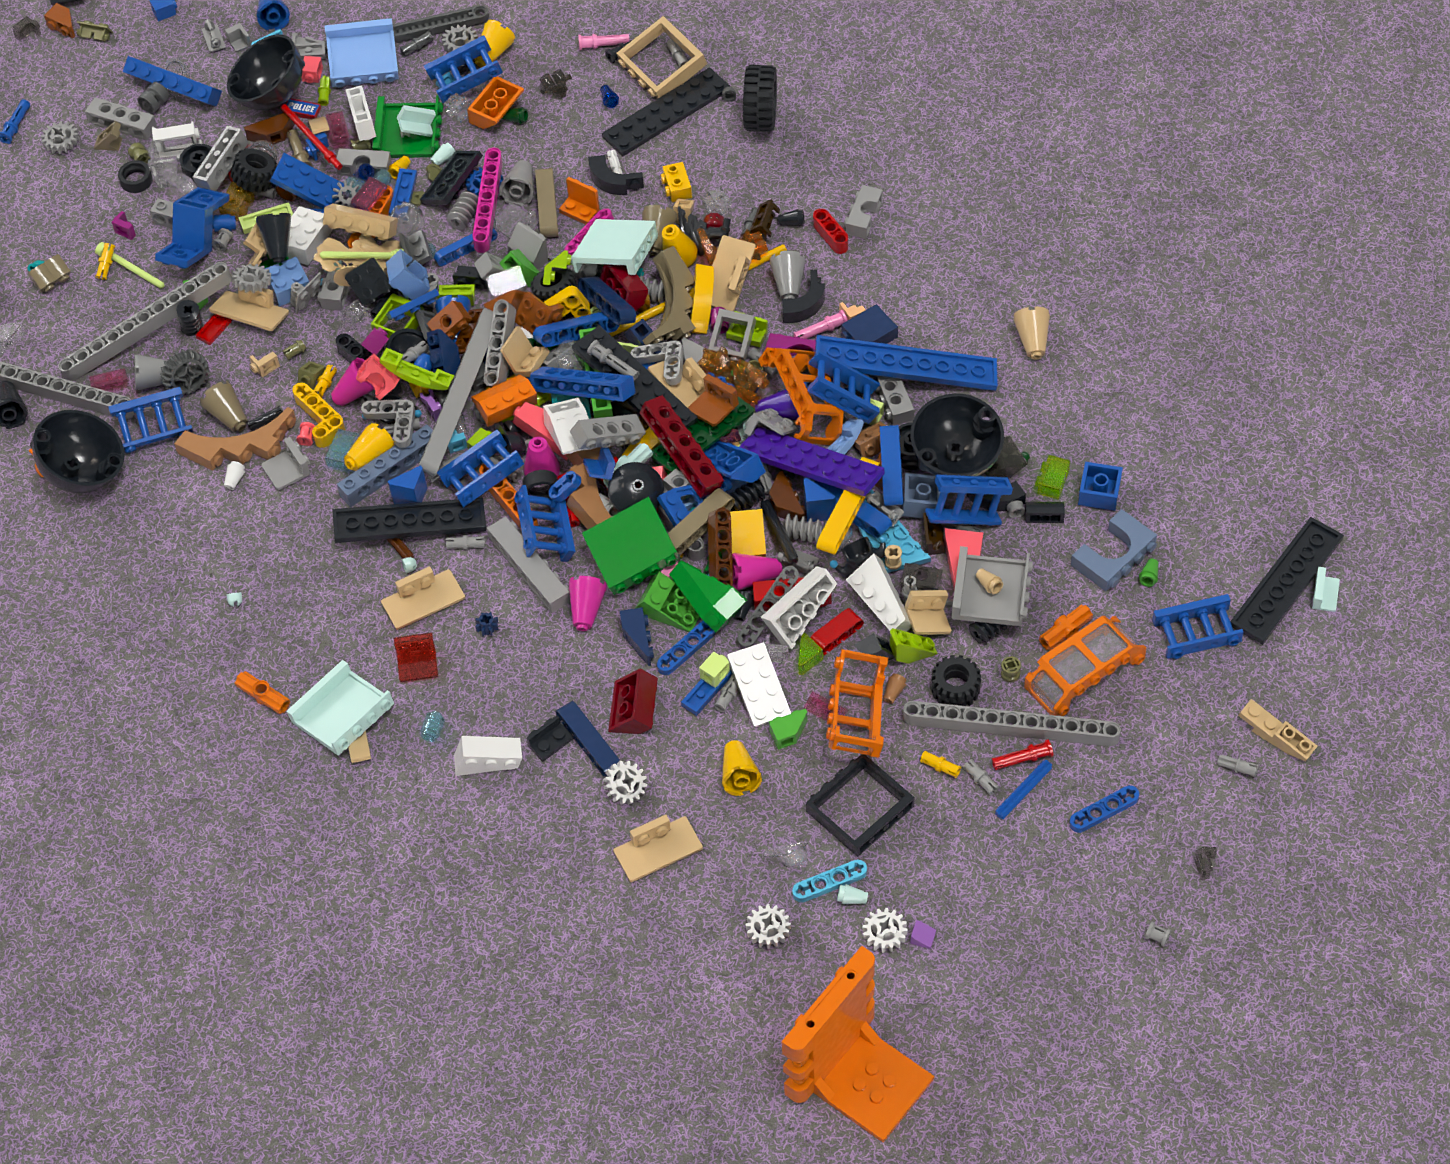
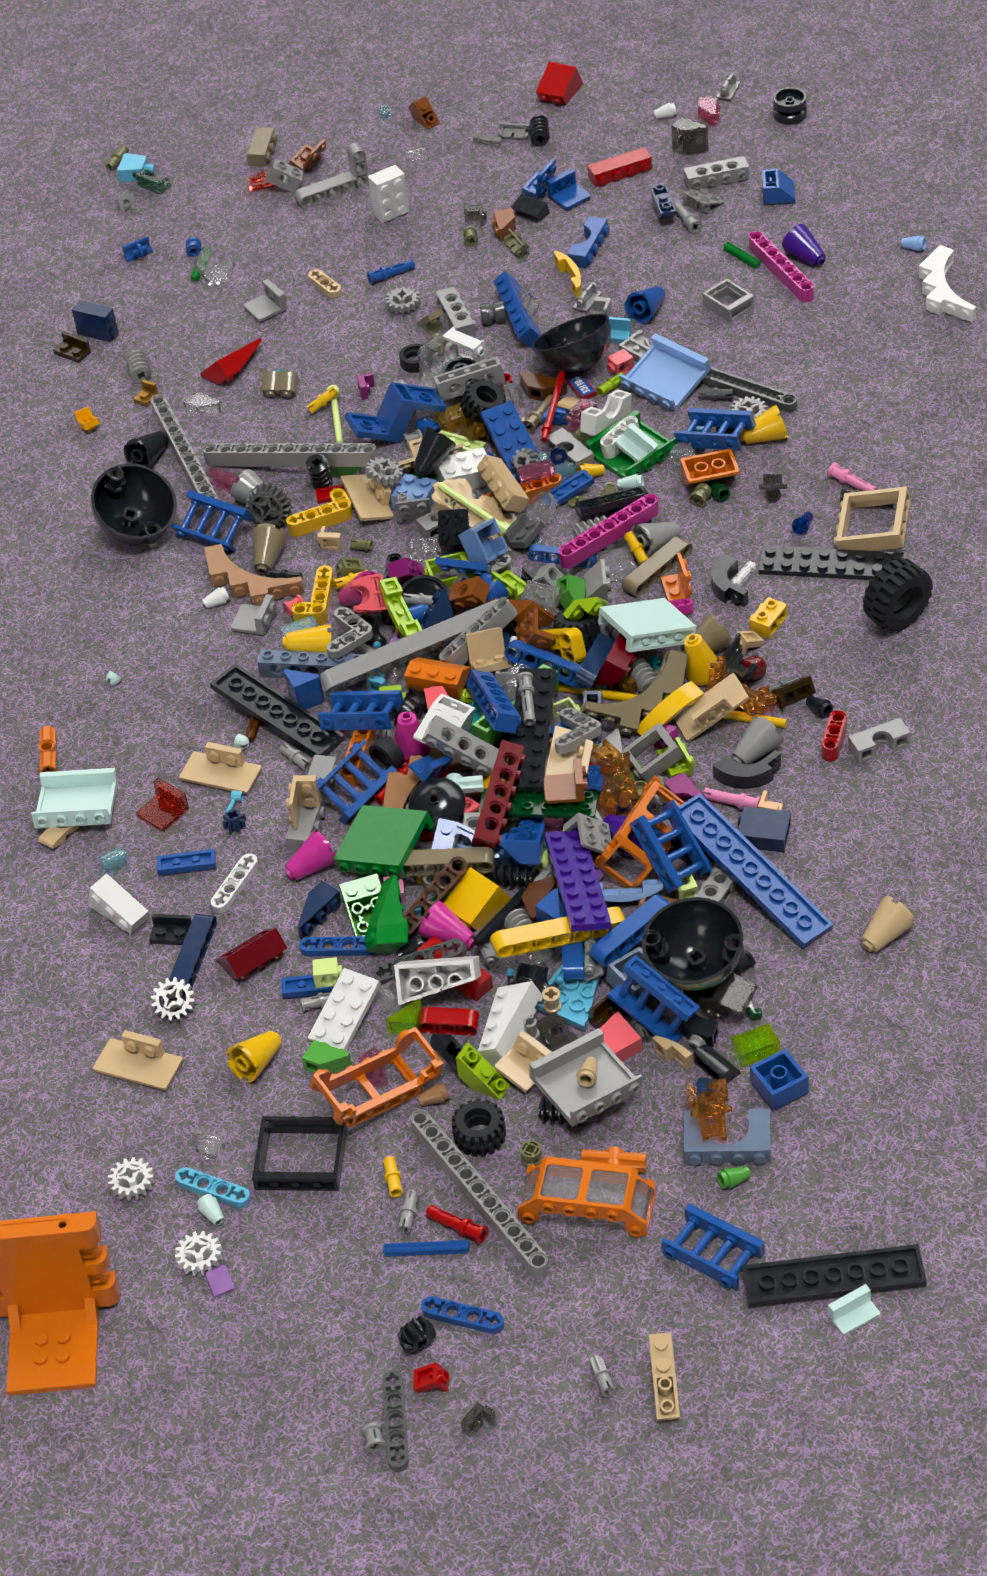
camera: 50 degrees right, 10 degrees down
(45, 49) = (470, 236): none -> olive bush
(174, 22) = (563, 264): none -> yellow slope
(239, 338) = (326, 515): none -> yellow beam
(270, 201) = (475, 432): none -> pearl gold bracket
(391, 127) = (607, 442): none -> white beam
(461, 605) = (236, 796): none -> medium azure hand
(491, 682) = (186, 862): none -> blue plate
(508, 127) = (700, 495): none -> olive wheel
(519, 199) = (635, 547): none -> yellow pin
(532, 559) = (303, 793): none -> tan bracket
(548, 667) = (232, 882): none -> white beam
(565, 486) = (393, 764): blue beam -> none
(717, 202) = (775, 652): clear brick -> none
(1013, 523) = (669, 1049): none -> tan slope
(1078, 530) = (708, 1099): none -> clear orange hips
(1100, 845) = (416, 1334): none -> black gear
(1141, 865) = (430, 1377): none -> red bracket
(1147, 903) = (400, 1429): none -> dark grey beam

